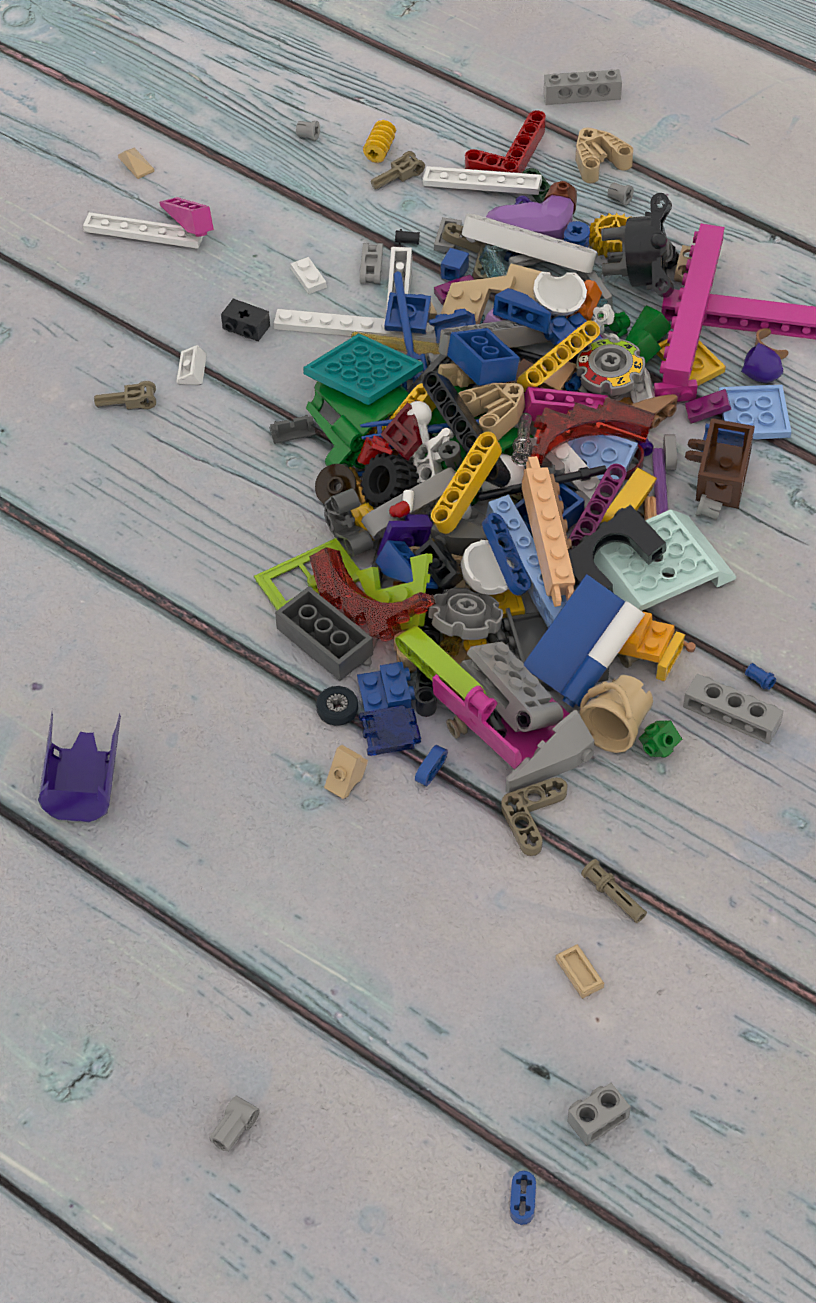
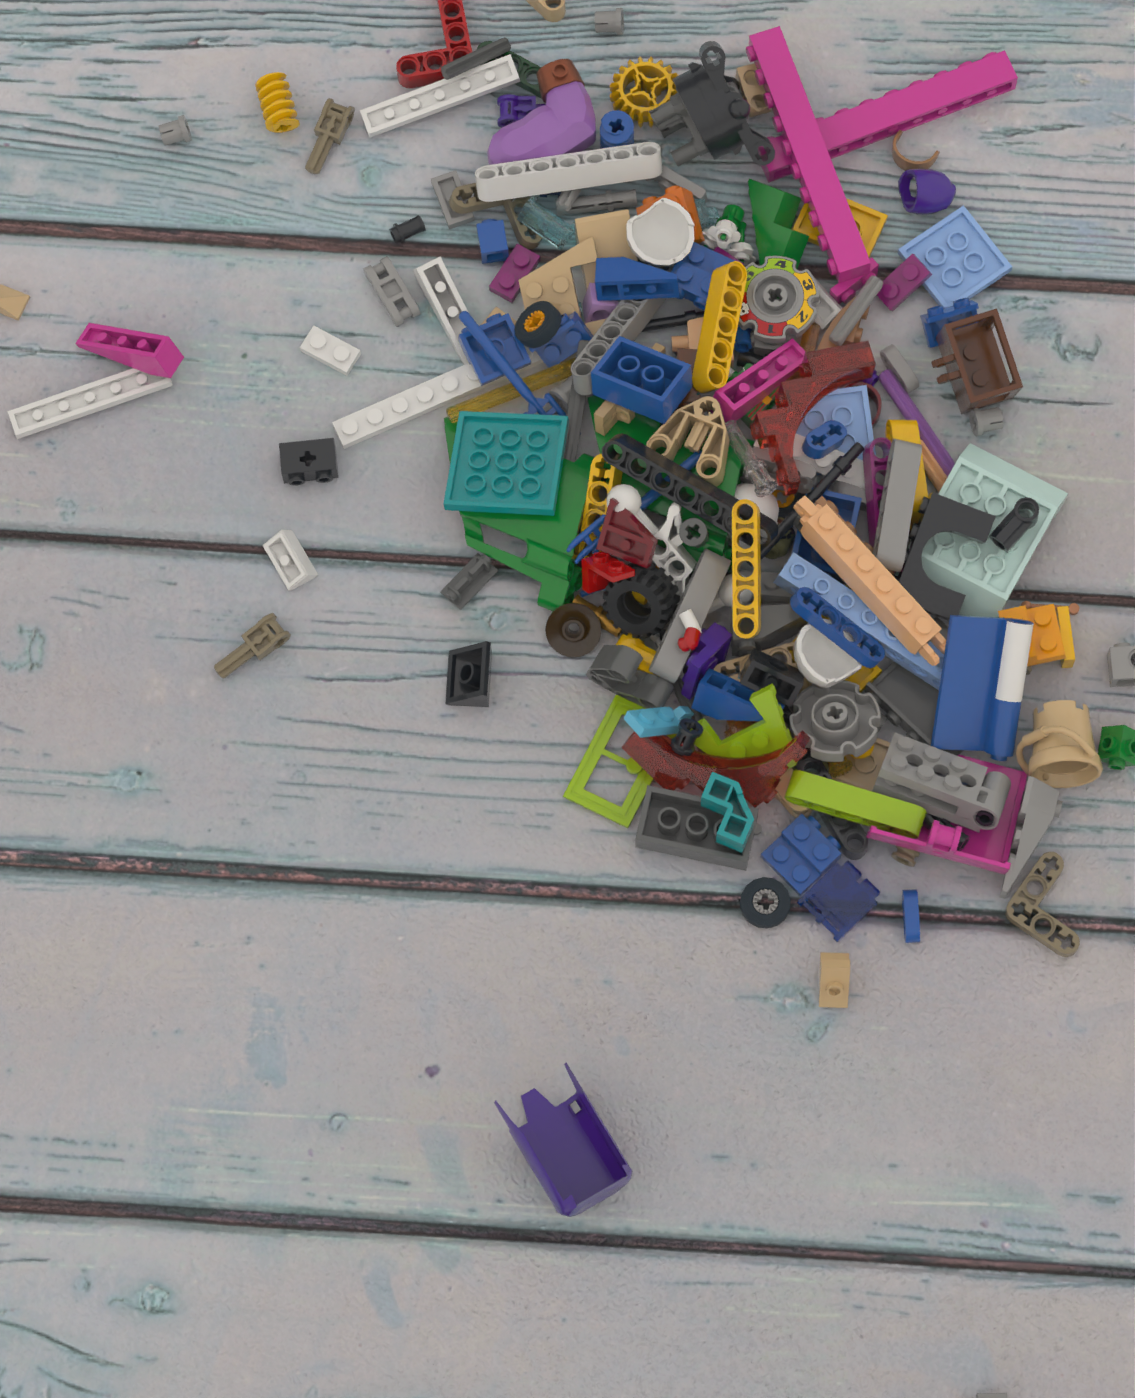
camera: 30 degrees left, 20 degrees up
(251, 479) = (469, 675): none -> black slope
(344, 553) = (657, 720): none -> medium azure hinge
(346, 628) = (727, 798): none -> teal brick
(355, 569) = (686, 737): none -> black bush
(443, 306) = (541, 314): none -> black bush
(516, 167) = (475, 58): none -> dark grey axle
(583, 455) = (828, 443): none -> blue beam
(601, 503) = (897, 504): none -> light grey beam
(664, 398) = (856, 310): none -> light grey axle
(687, 560) = (1014, 525): none -> black piece

